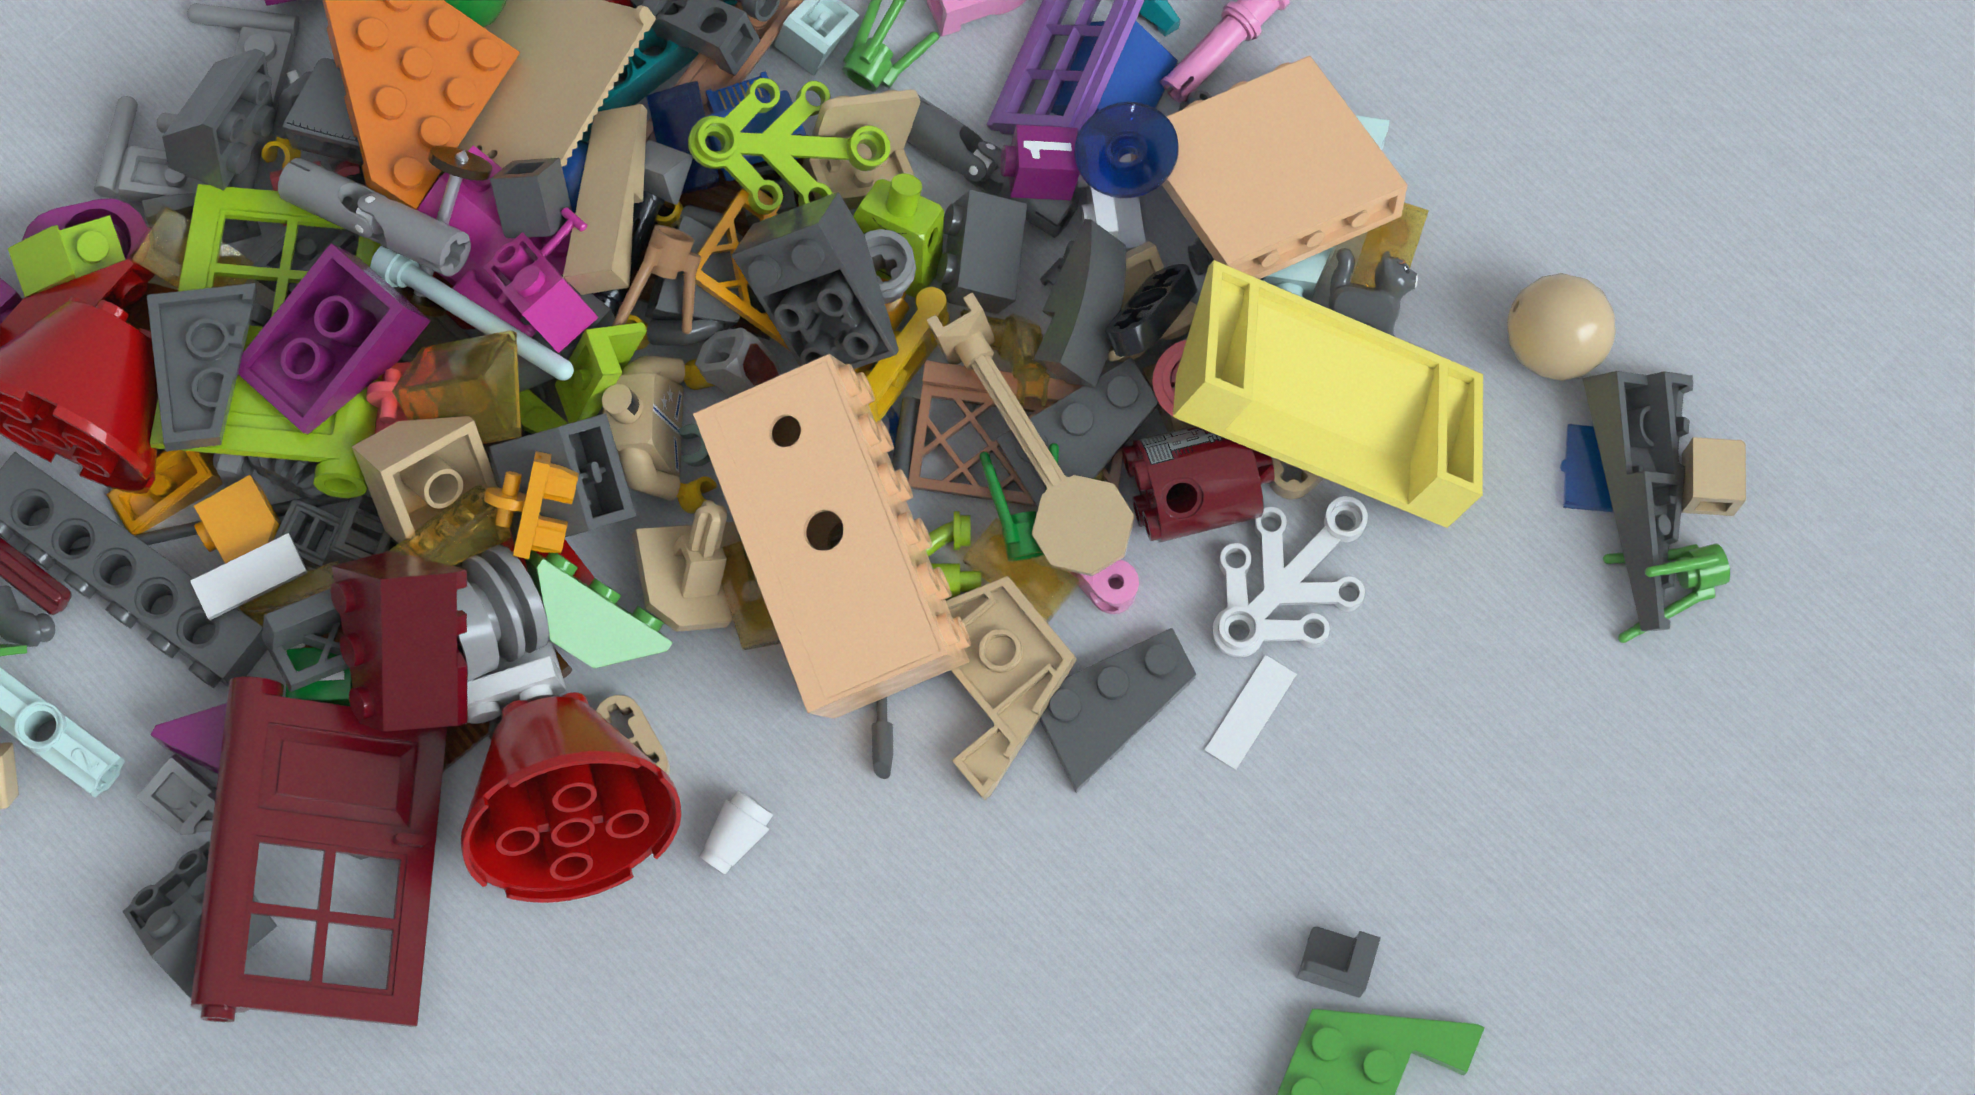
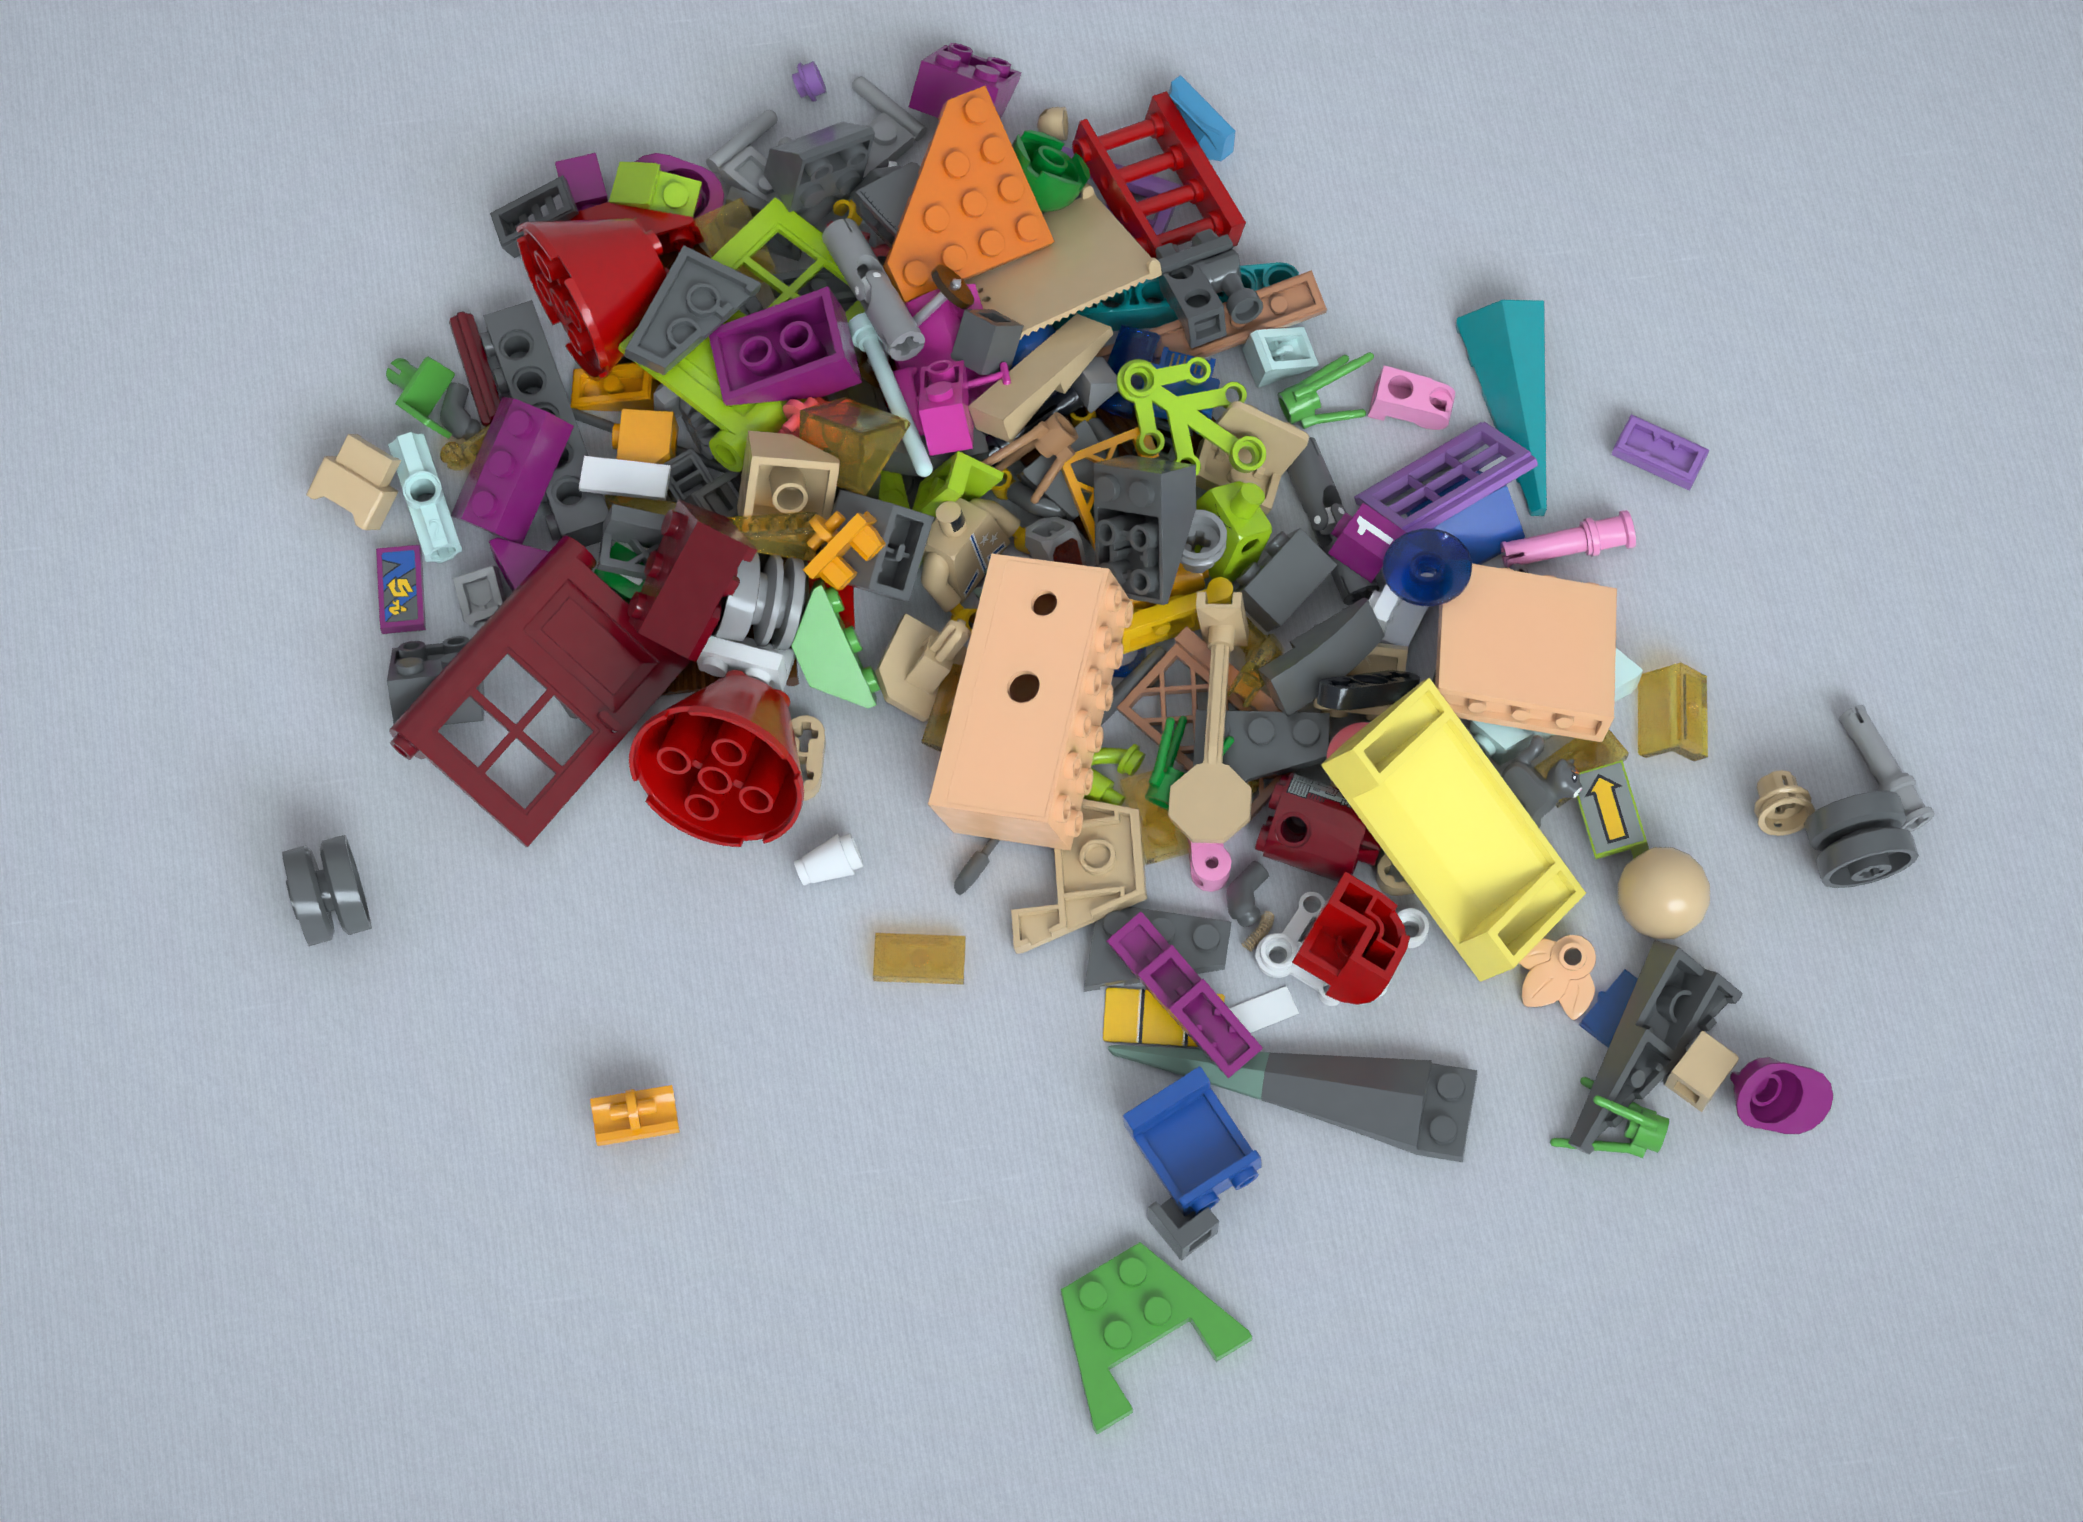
camera: 35 degrees right, 5 degrees down
(60, 646) = (461, 456): none -> clear yellow arm
(87, 843) = (400, 589): none -> tile
(121, 645) = (512, 469): none -> magenta slope
(141, 41) = (809, 81): none -> medium lavender plate
(893, 870) = (919, 958): none -> clear yellow plate
(1161, 594) = (1241, 894): none -> dark grey arm
(1171, 767) = (1140, 1019): none -> yellow sticker
(1183, 732) = (1184, 995): none -> magenta slope
(1203, 614) = (1264, 925): none -> tan leg
(1298, 877) = (1192, 1143): none -> blue panel
(1313, 571) = (1354, 942): none -> red brick
(1438, 145) = (1673, 712): none -> clear yellow panel
(1445, 703) = (1387, 1099): none -> dark grey plate
(1456, 279) = (1611, 811): none -> panel
(1514, 479) = (1555, 980): none -> light nougat plate
(1603, 166) = (1790, 800): none -> tan piece
(1690, 83) = (1884, 766): none -> light grey pin
(1711, 160) = (1861, 839): none -> dark grey wheel
(1800, 452) = (1781, 1096): none -> magenta piece

